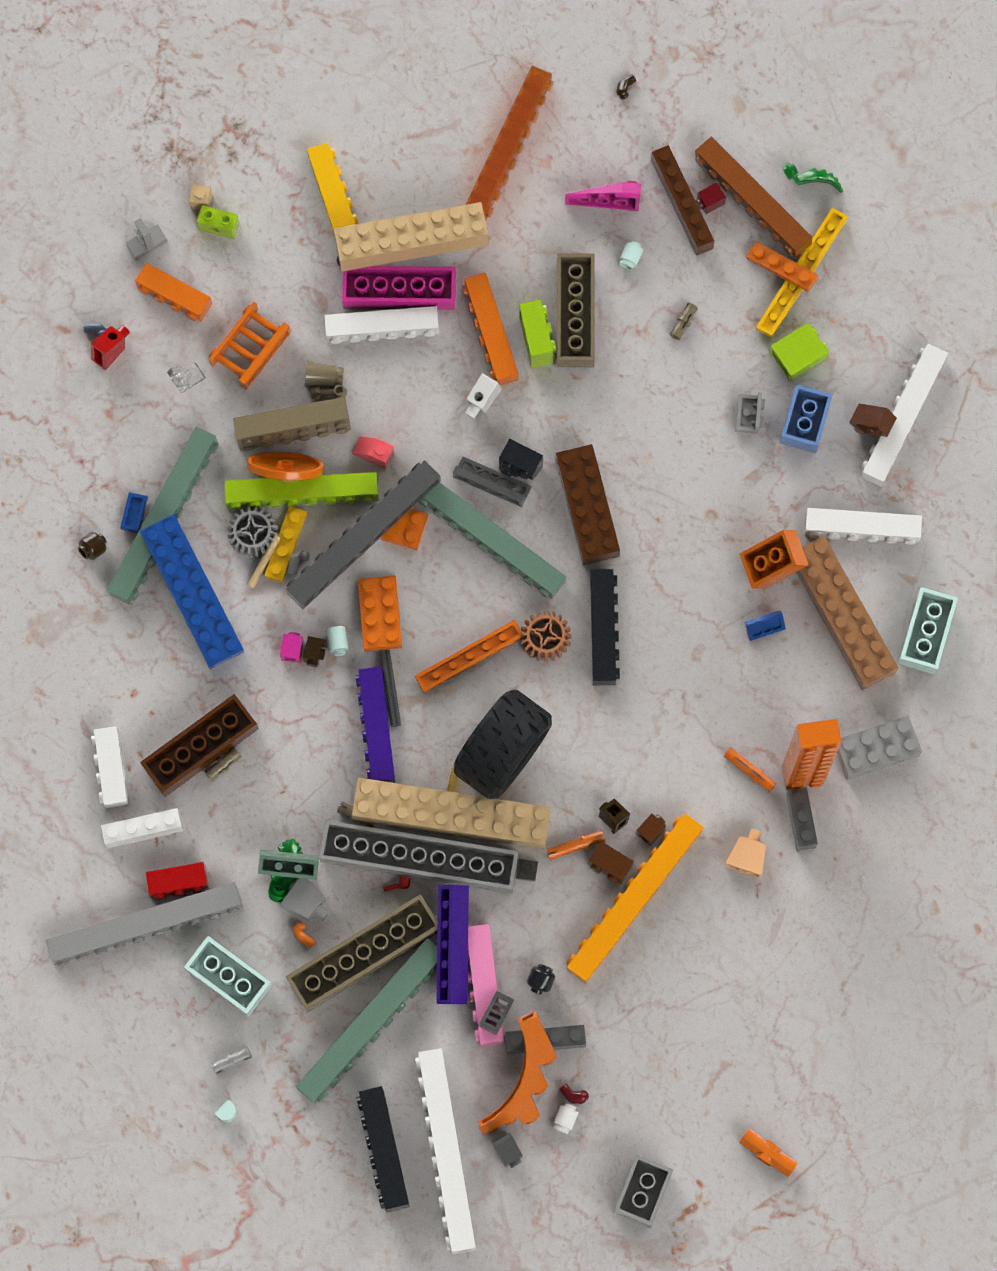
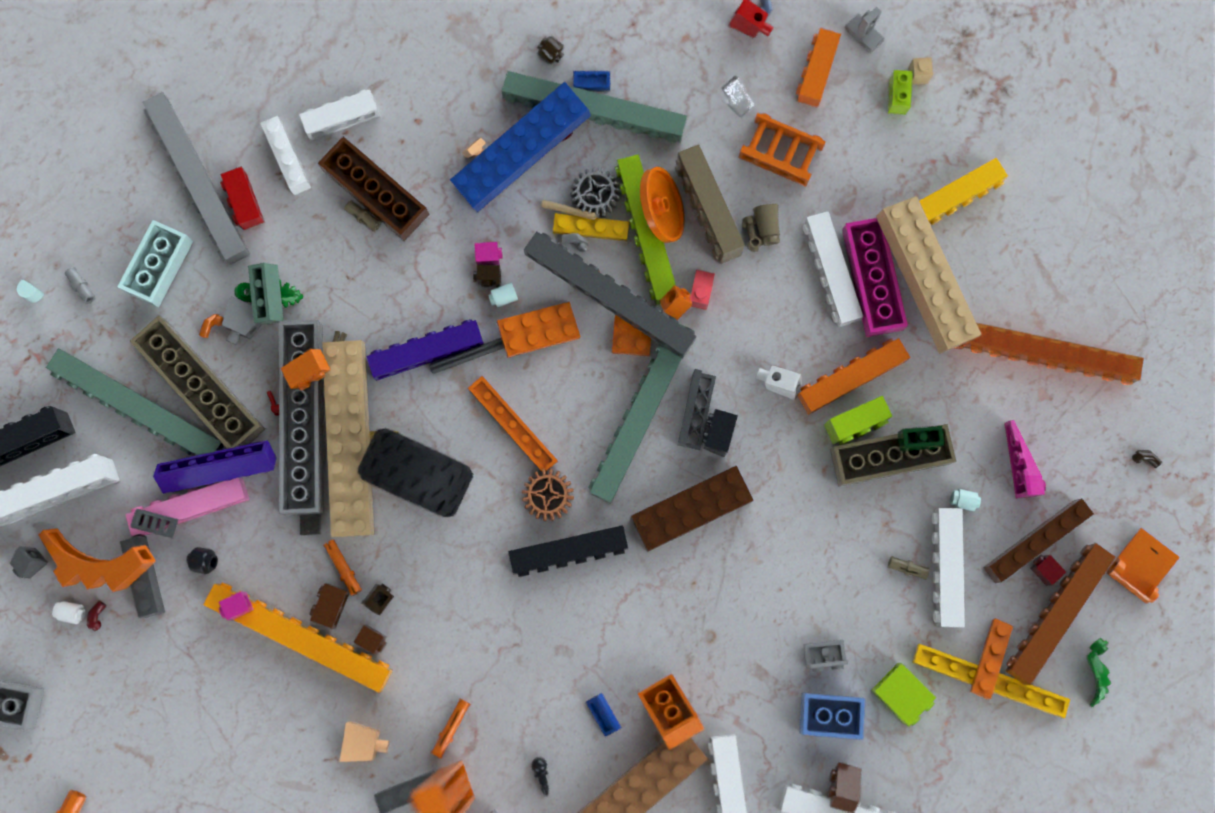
camera: 75 degrees right, 5 degrees up
(181, 638) = (474, 149): none -> light nougat plate
(376, 833) = (305, 369): none -> orange brick
(384, 474) = (676, 302): none -> orange brick
(567, 278) = (920, 438): none -> dark green brick
(594, 945) = (235, 606): none -> dark pink brick
(691, 285) = (948, 567): none -> white brick
(724, 115) = (1140, 567): none -> orange door
(801, 694) = (539, 767): none -> black bar

